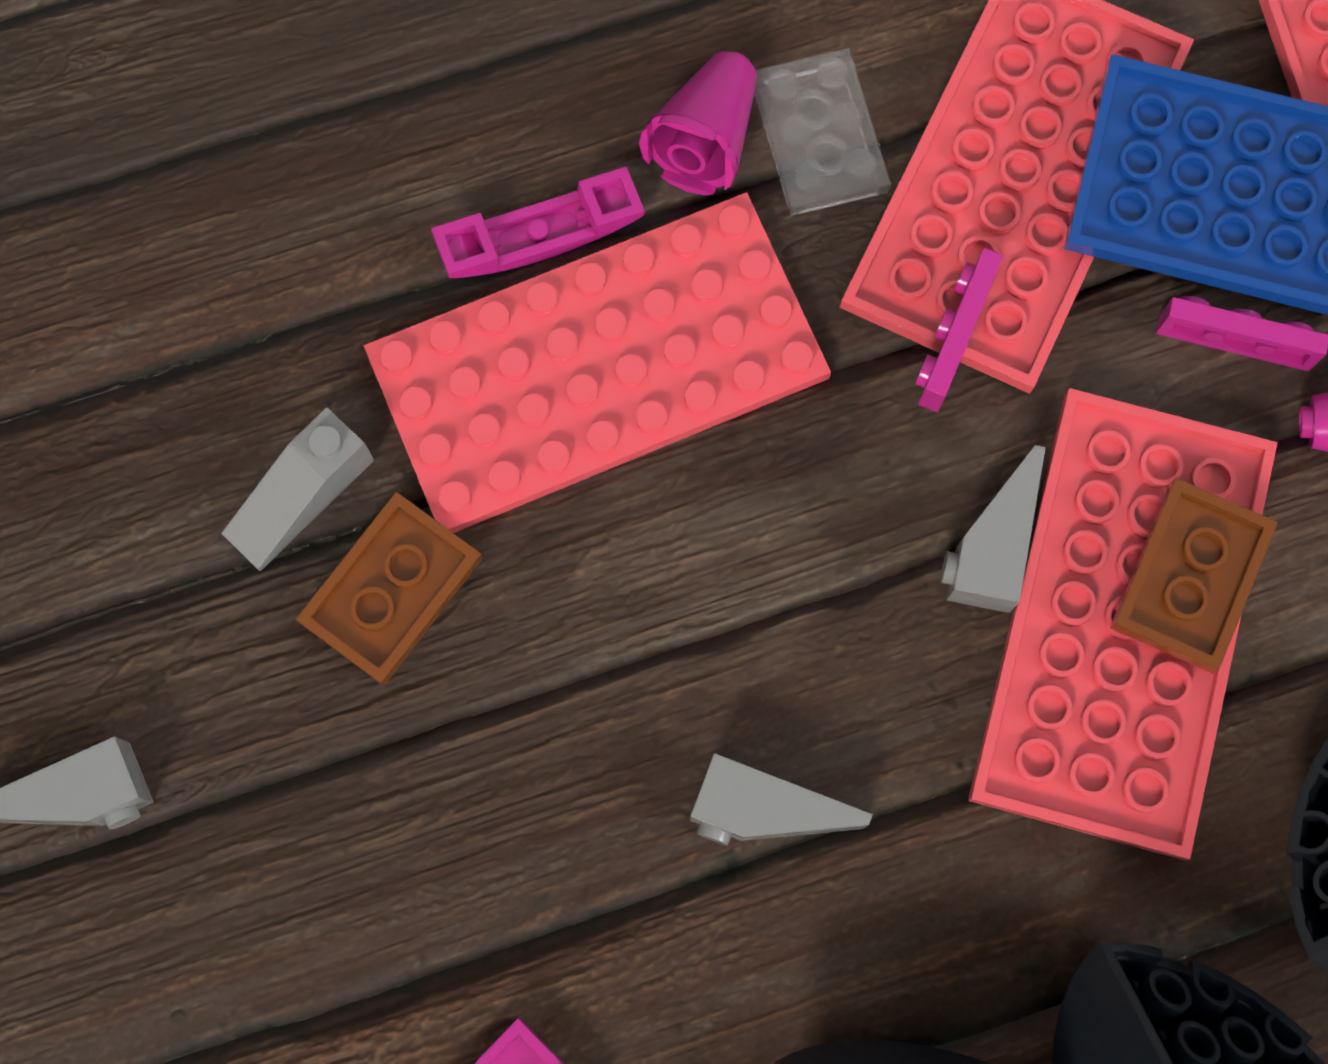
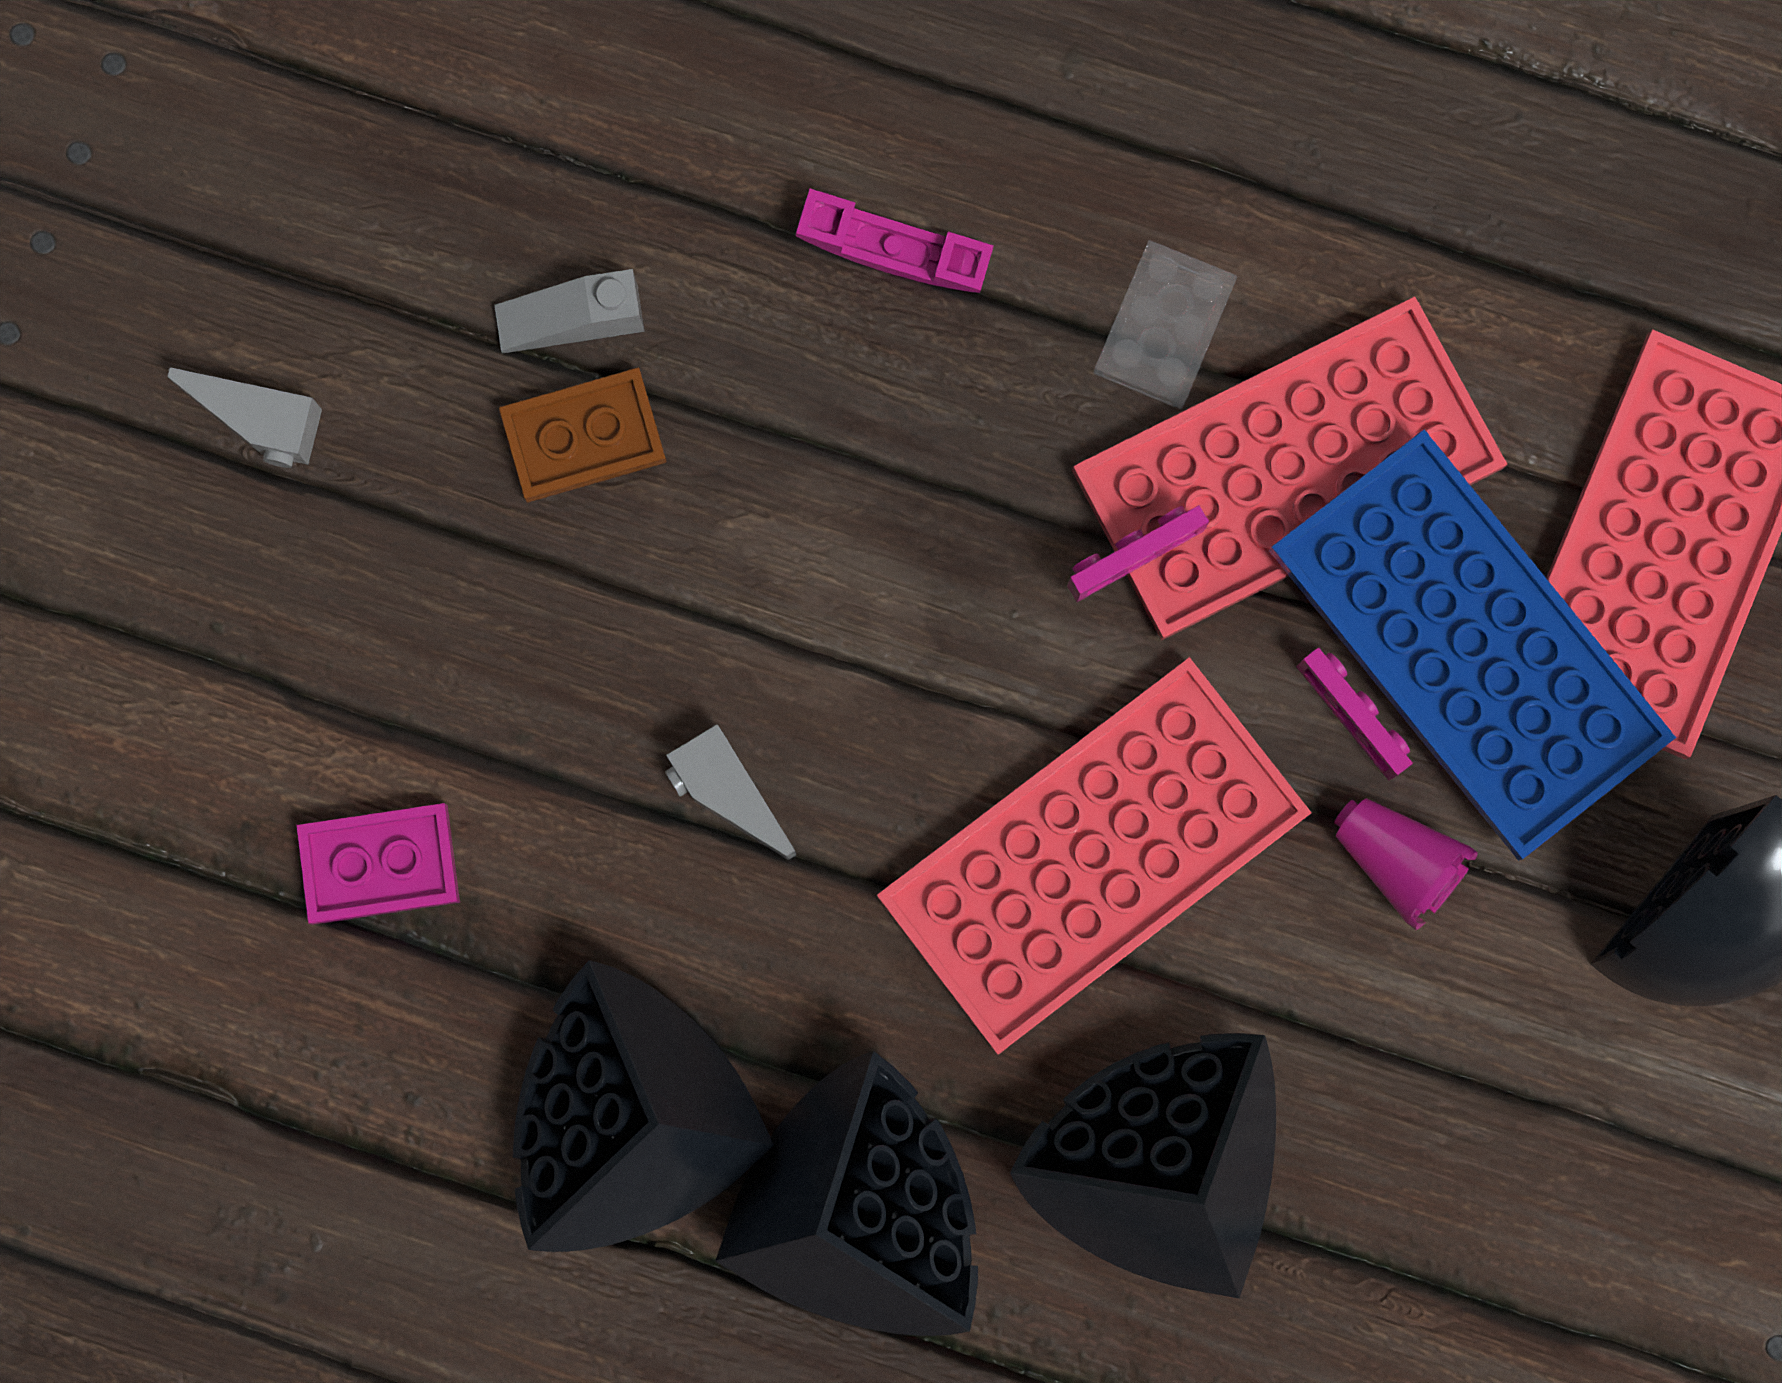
camera: 35 degrees right, 5 degrees up
(596, 363) = (860, 378): coral plate -> none
(703, 126) = (1077, 255): dark pink cone -> none
(994, 552) = (1041, 729): light grey slope -> none
(1194, 575) = (1163, 859): dark orange plate -> none

